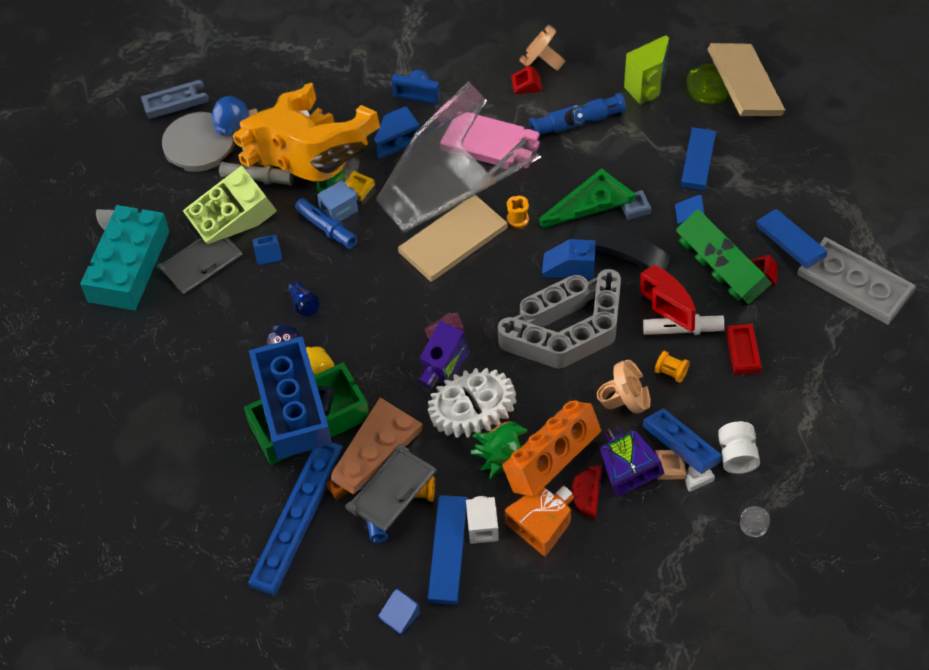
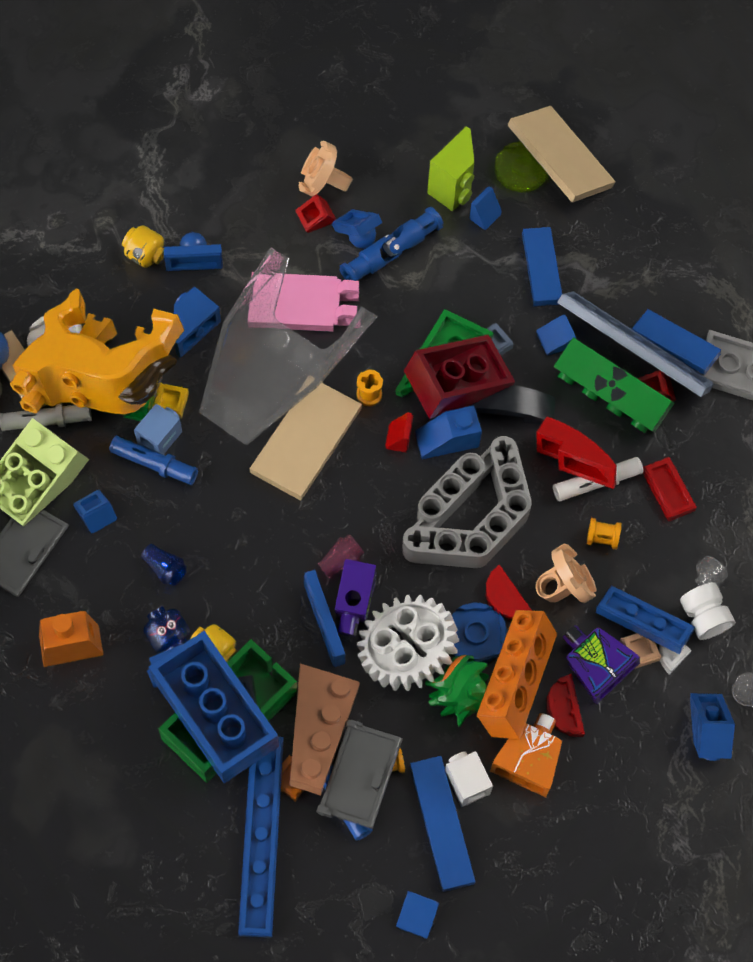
camera: 25 degrees left, 10 degrees up
(206, 328) = (69, 638): none -> orange torso
(379, 72) = (143, 246): none -> yellow head
(412, 368) = (324, 618): none -> blue tile
(531, 252) = (399, 433): none -> red slope
(533, 411) = (479, 631): none -> blue tile
(555, 96) = (359, 227): none -> blue tile
(567, 388) = (503, 595): none -> red tile
(591, 214) = (457, 374): none -> dark red slope
(666, 105) = (485, 209): none -> blue slope
(707, 539) = (711, 726): none -> blue slope
(756, 231) = (636, 343): none -> sand blue tile
(756, 417) = (710, 571): none -> clear tile

